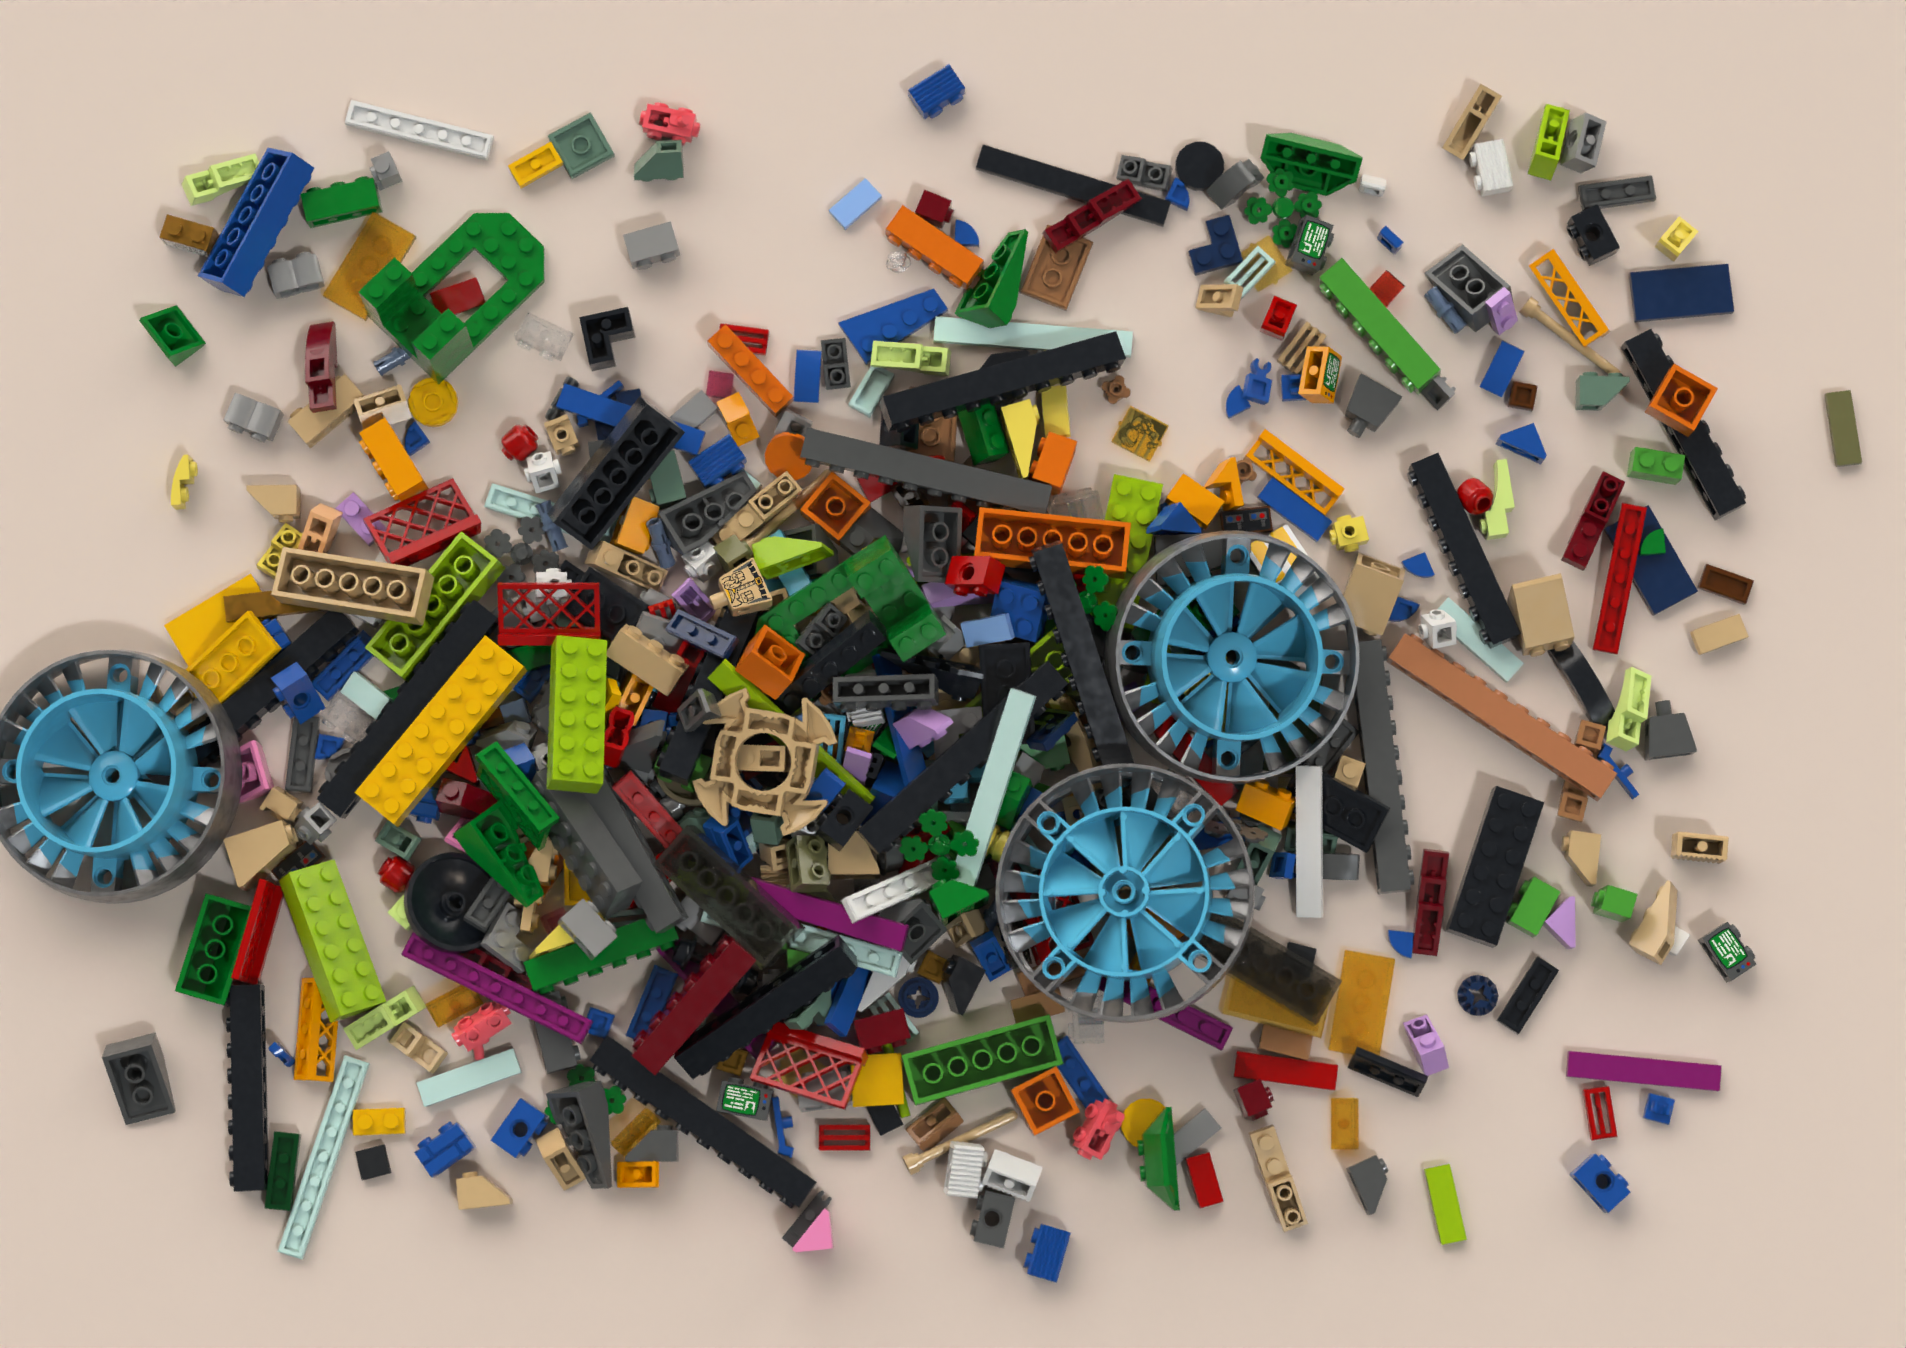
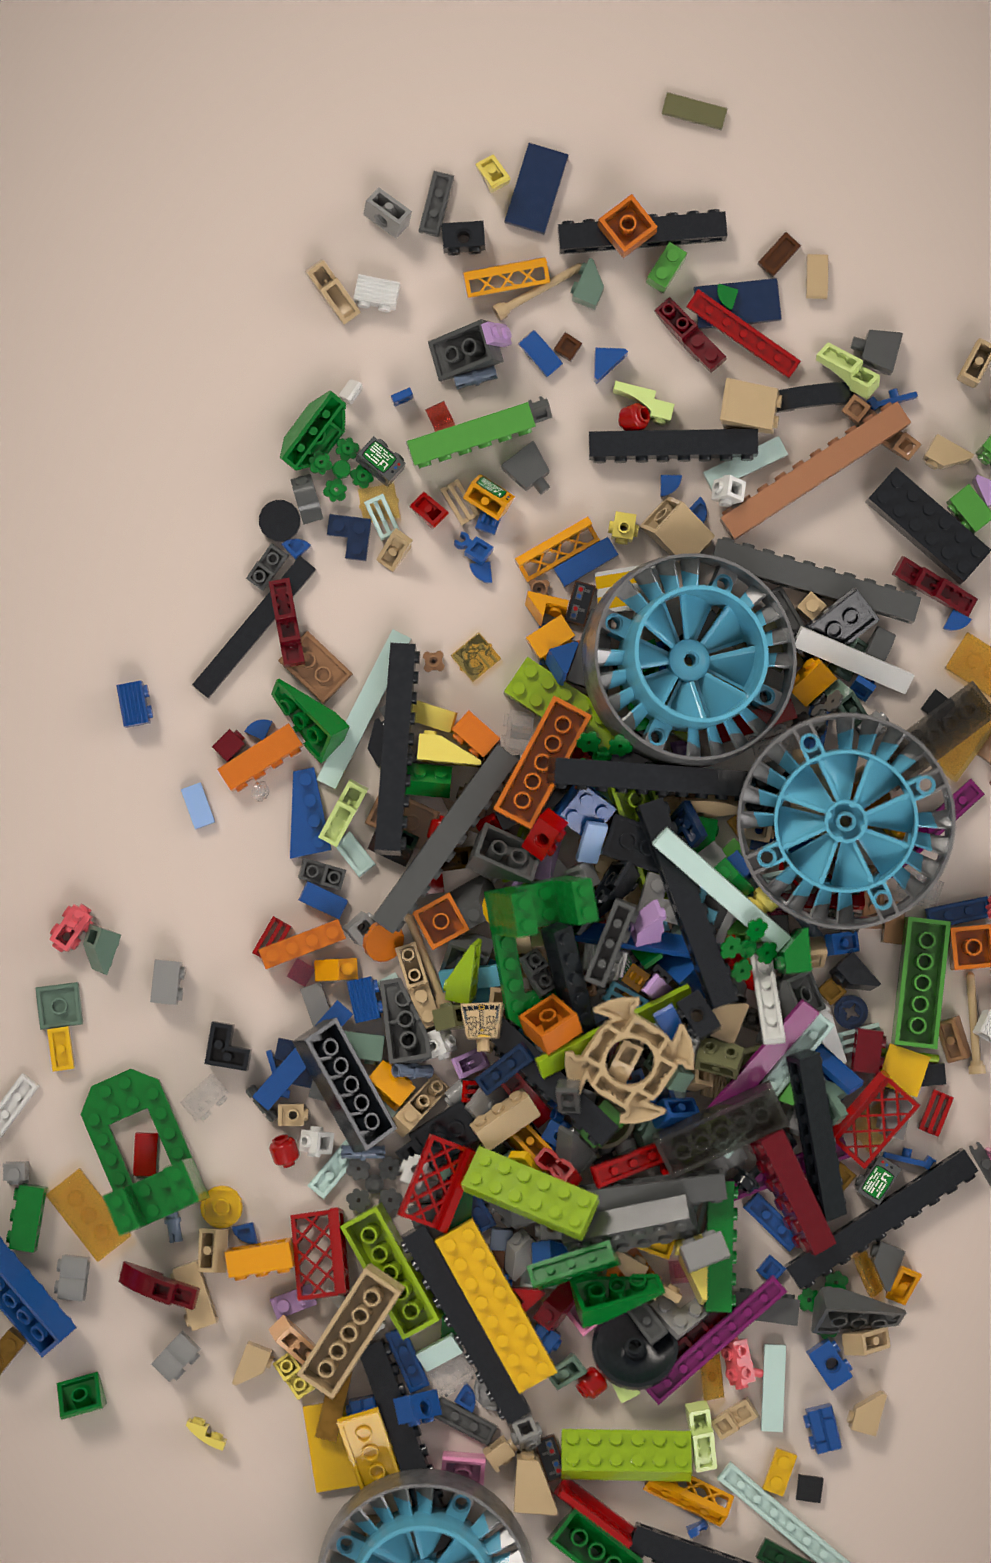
camera: 70 degrees left, 5 degrees up
(1548, 142) = (374, 239): lime slope -> none

